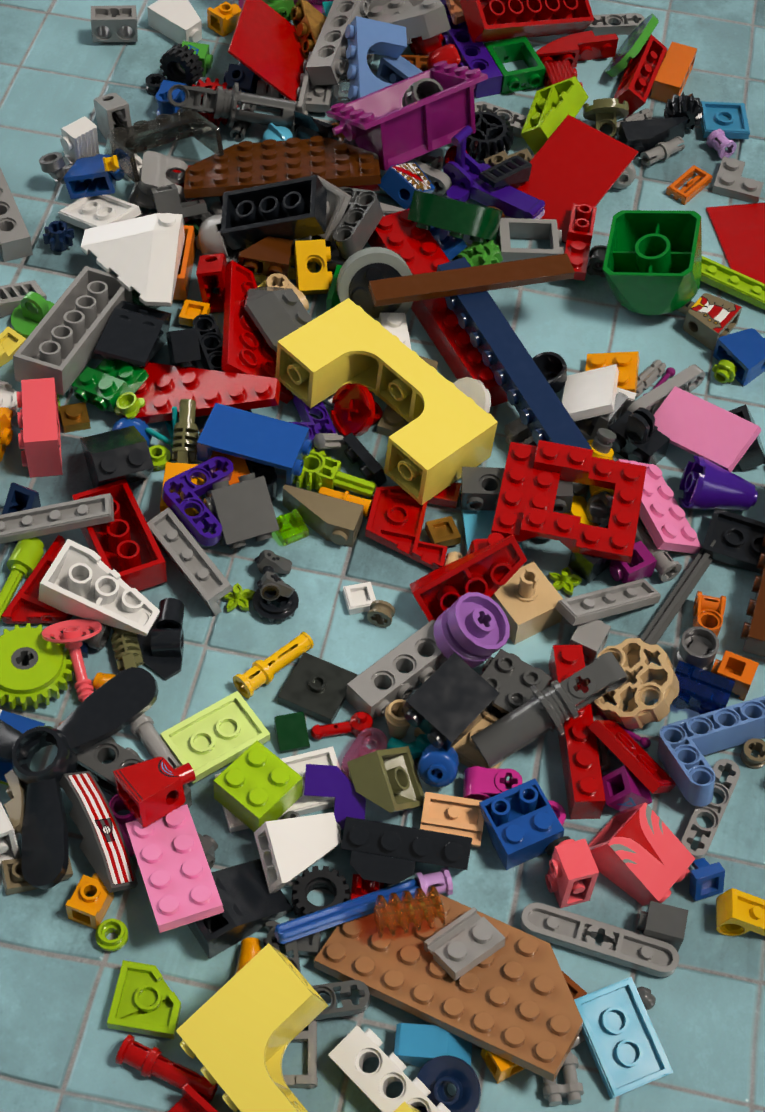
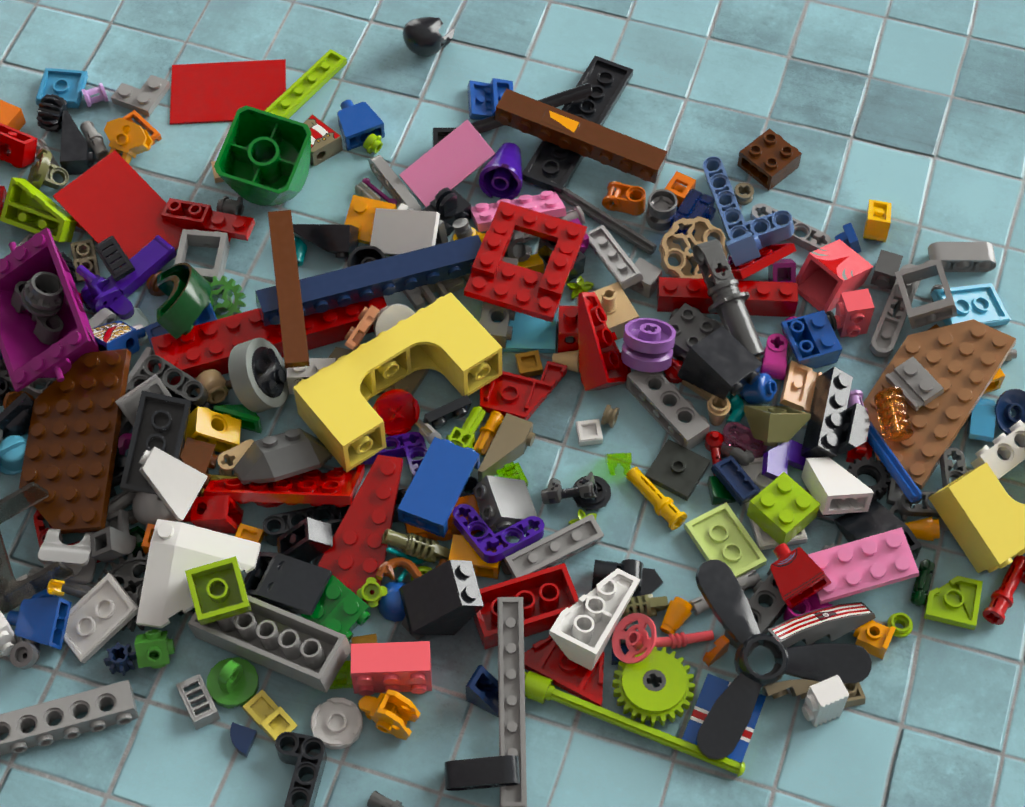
camera: 80 degrees left, 5 degrees up
(66, 254) = (154, 649): none -> bright green brick
(105, 267) = (218, 590): none -> lime brick
(156, 414) = (387, 567): none -> dark orange animal
(174, 964) = (922, 583): none -> dark green axle
(229, 223) = (172, 481): none -> white slope
(301, 740) = (735, 480): none -> dark blue plate
(321, 623) = (613, 459): none -> clear neon green tile
(339, 740) = (743, 458): none -> dark grey arm
(437, 351) = (356, 334): none -> nougat wing
(562, 323) = (301, 250): none -> teal arm
(576, 339) = (330, 237): none -> black slope
(623, 981) = (932, 311): none -> light grey window
(645, 736) = (744, 248): none -> medium blue brick
(661, 168) = (127, 138): none -> light orange hinge
(710, 1031) = (963, 256): none -> light grey beam

